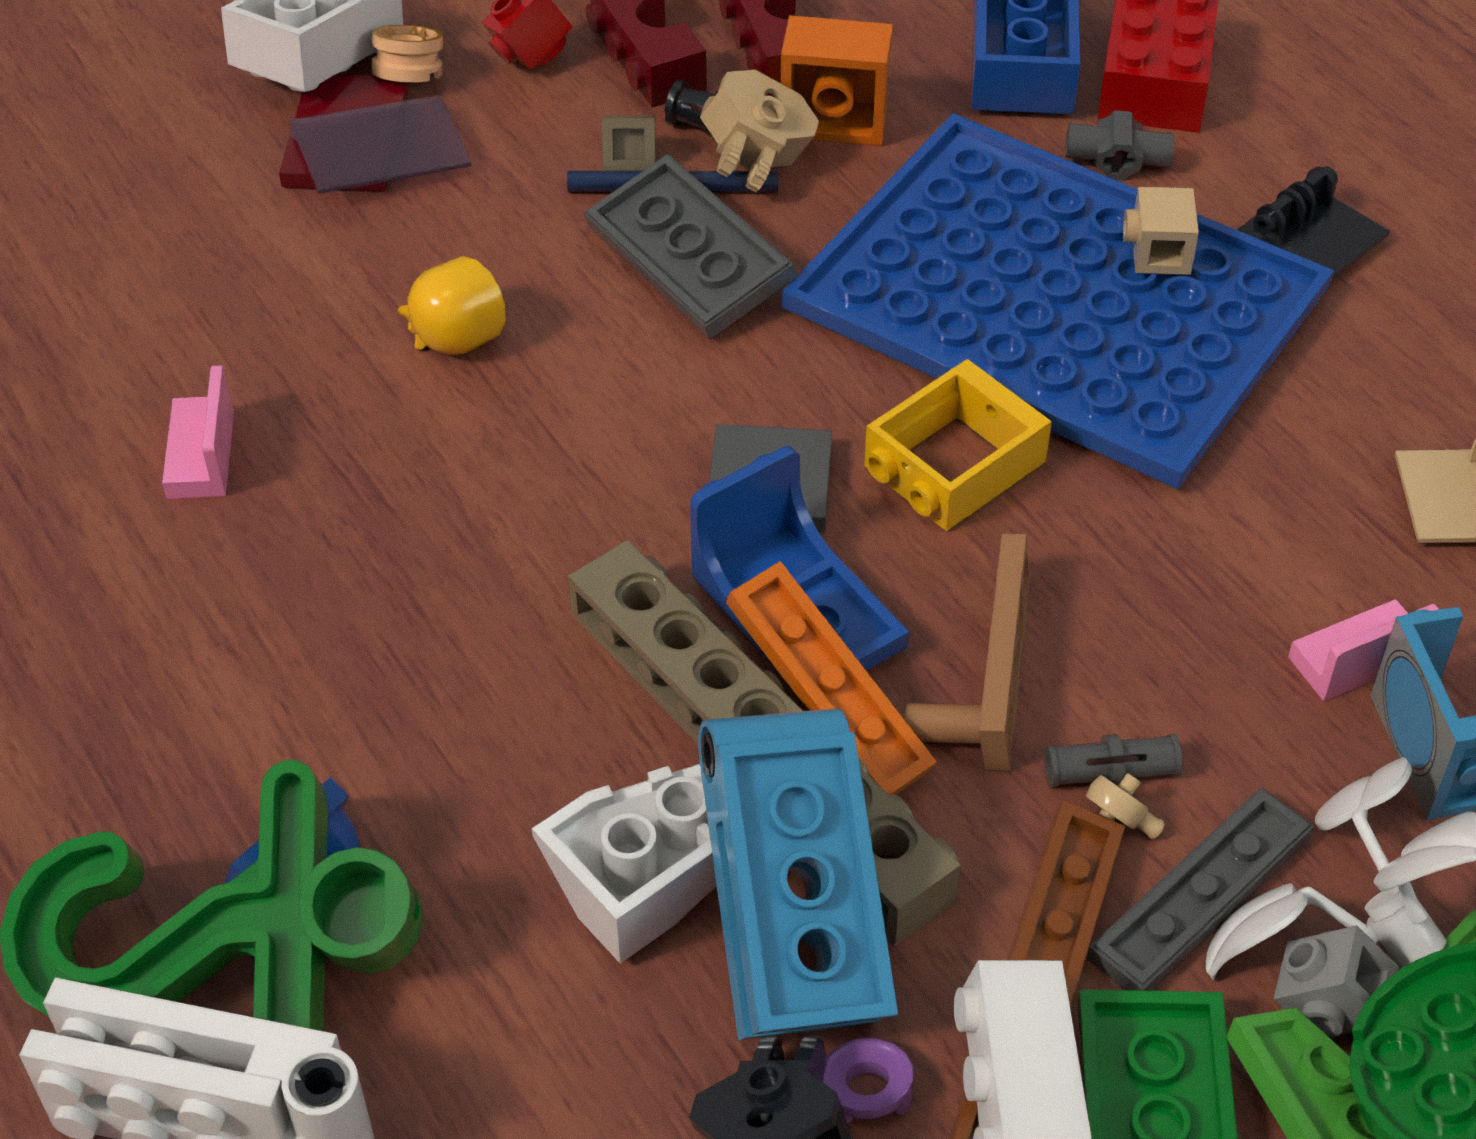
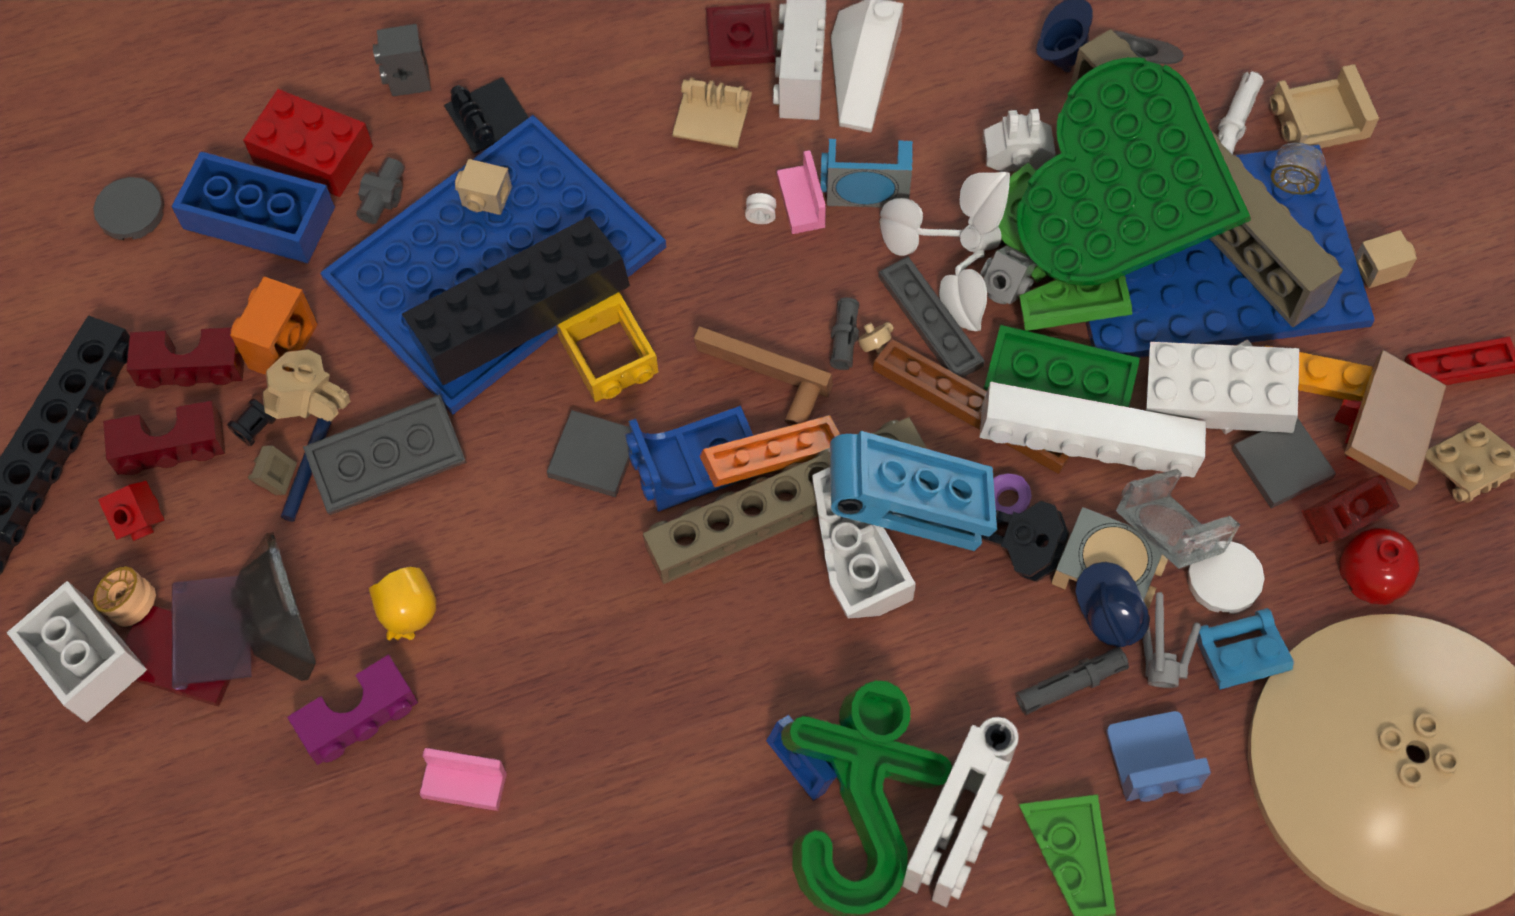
camera: 75 degrees left, 15 degrees up
(258, 284) = (329, 732): none -> magenta arch
(422, 180) = (271, 613): none -> clear smoke wedge
(979, 301) = (516, 300): none -> black brick
(1306, 590) = (760, 208): none -> white bush
(1343, 102) = (402, 60): none -> dark grey brick

